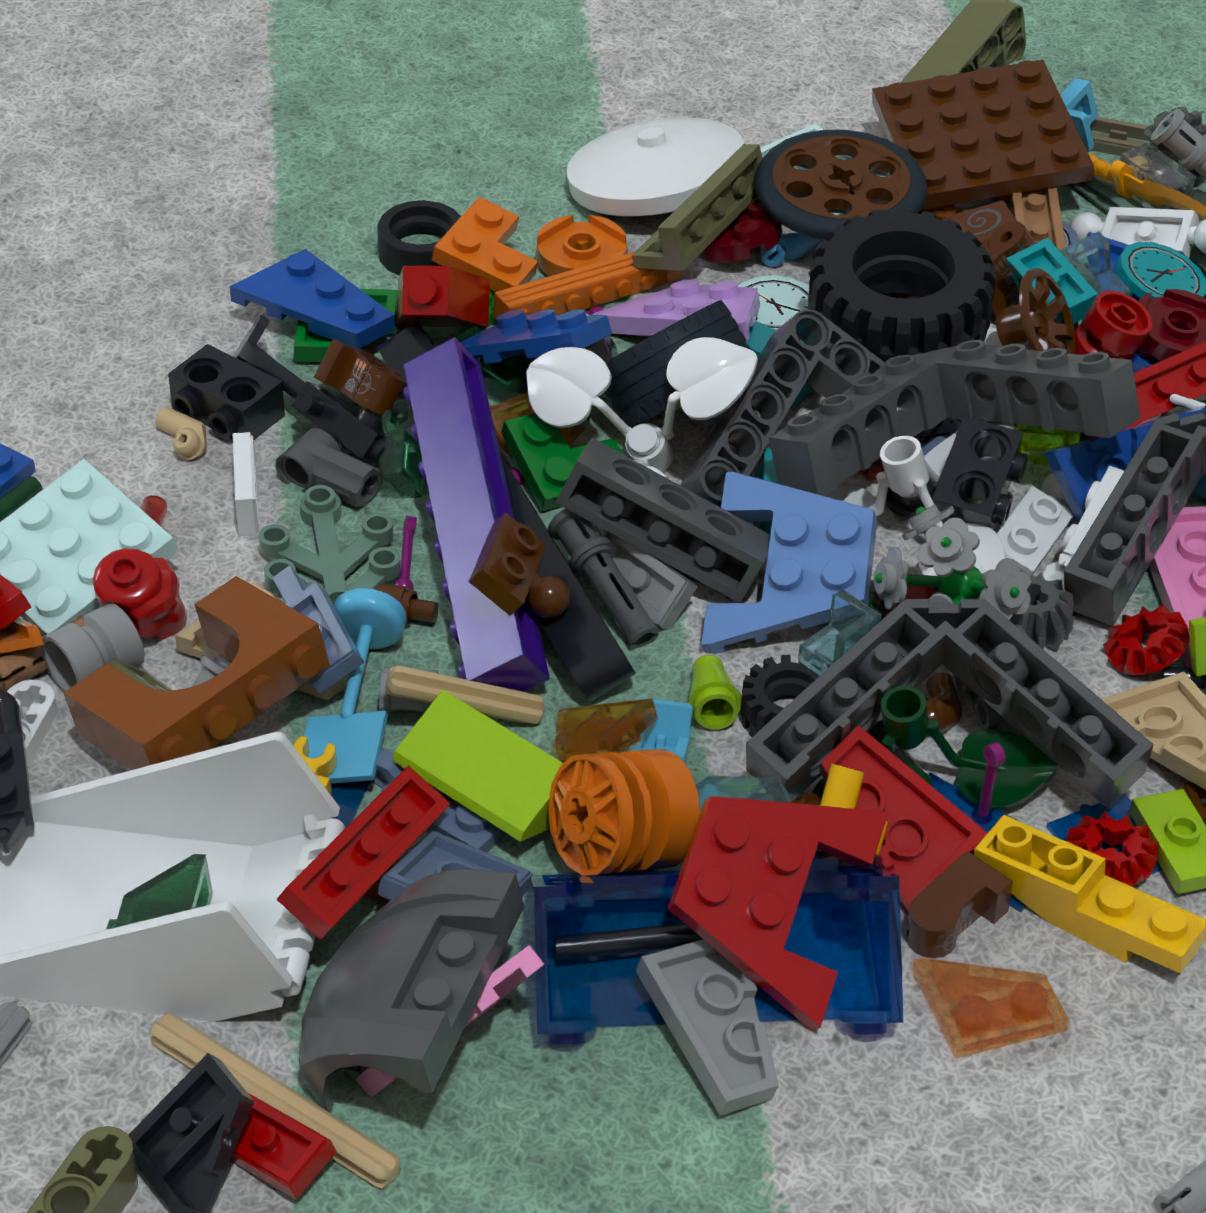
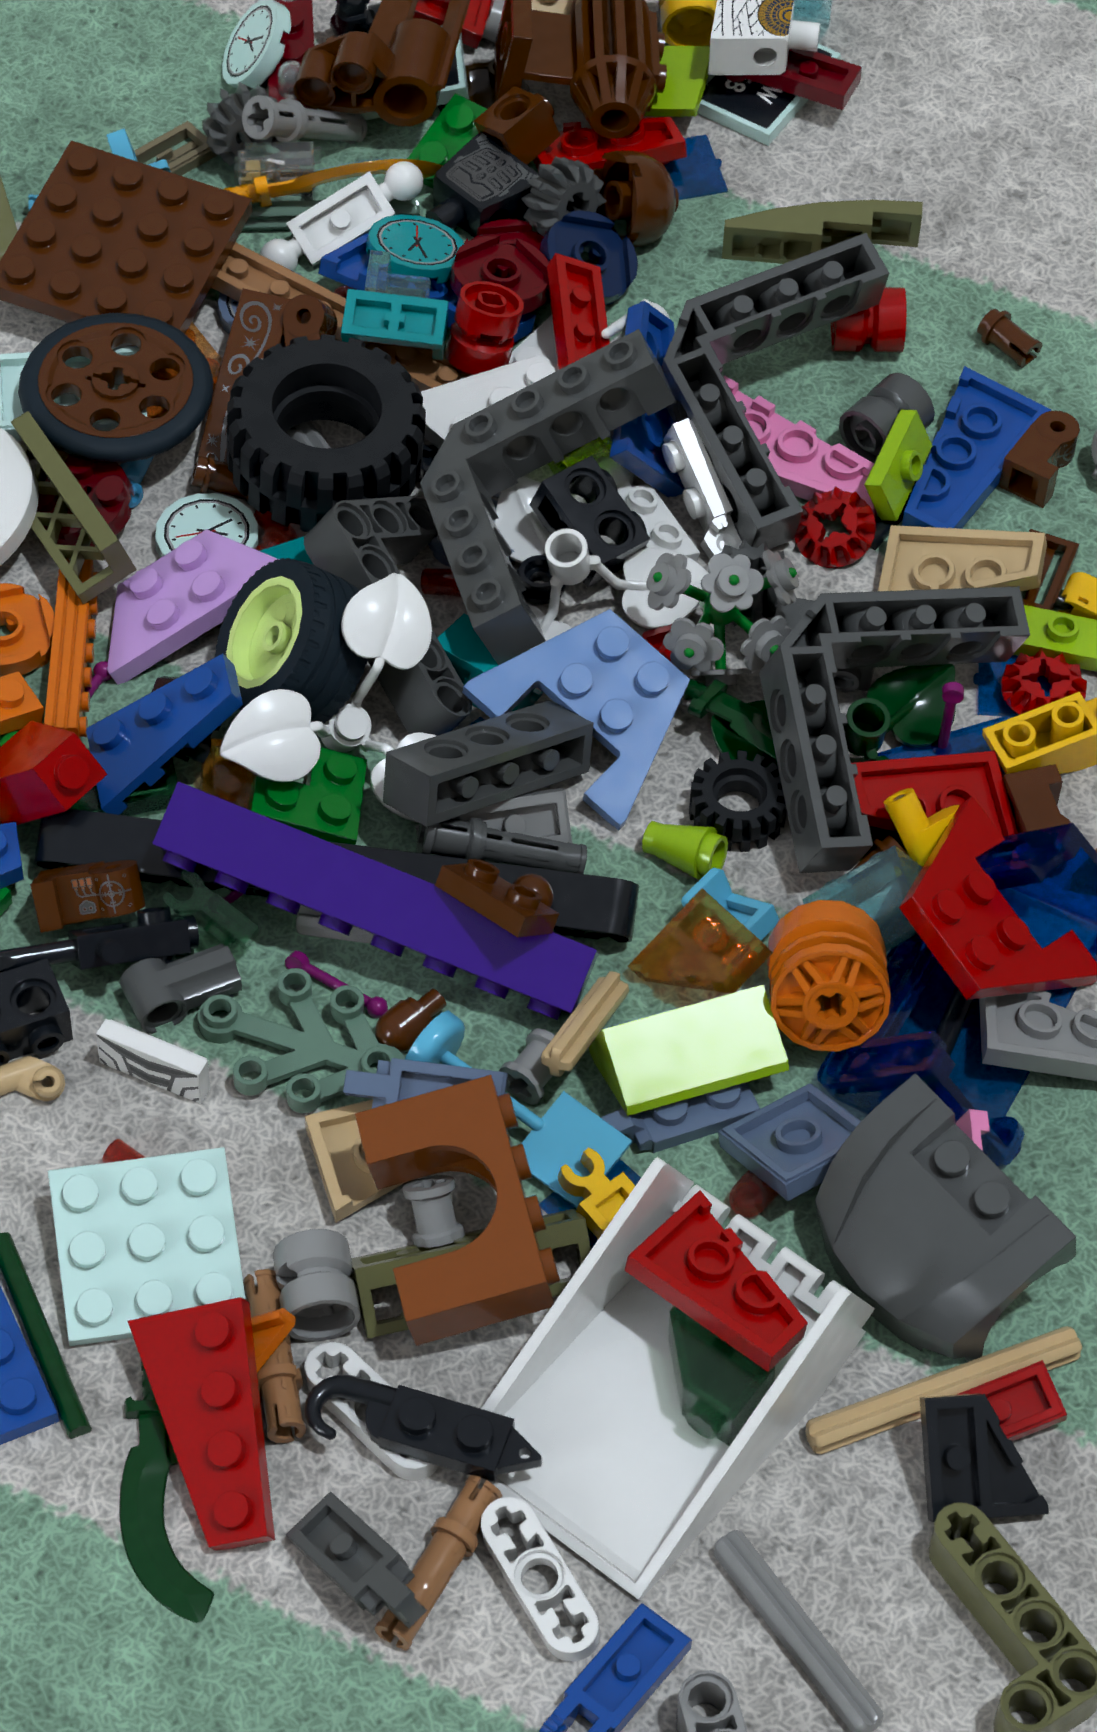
camera: 60 degrees left, 10 degrees up
(143, 589) = (271, 1208): red head -> none
(240, 851) = (715, 1284): none -> red wing
(363, 852) = (751, 1182): red plate -> none
(848, 623) = (730, 720): clear light blue panel -> none
(1033, 320) = (456, 367): reddish brown wheel -> none

